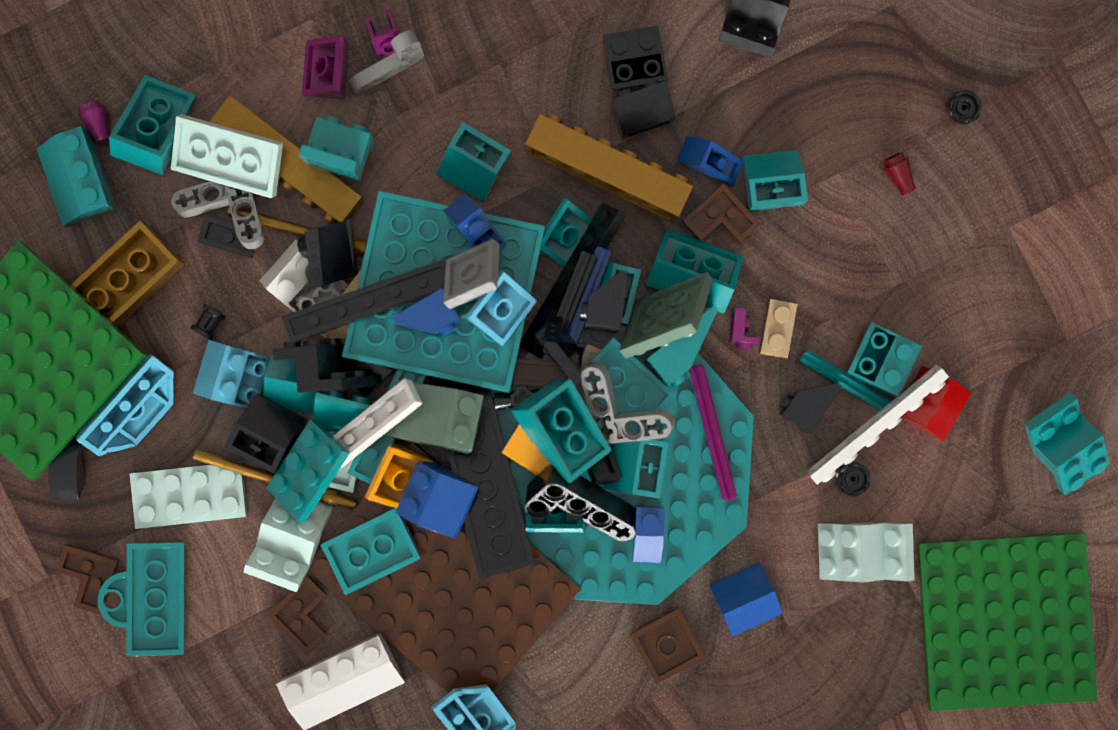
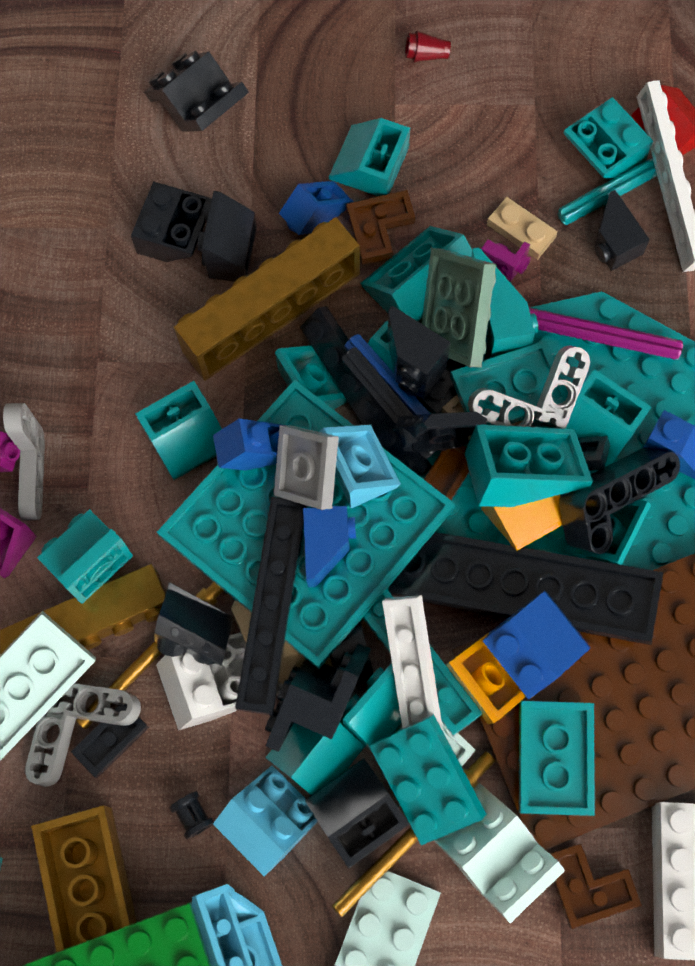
camera: 55 degrees left, 15 degrees down
(443, 420) = (453, 589): sand green slope -> none
(507, 400) = (460, 517): black axle -> none

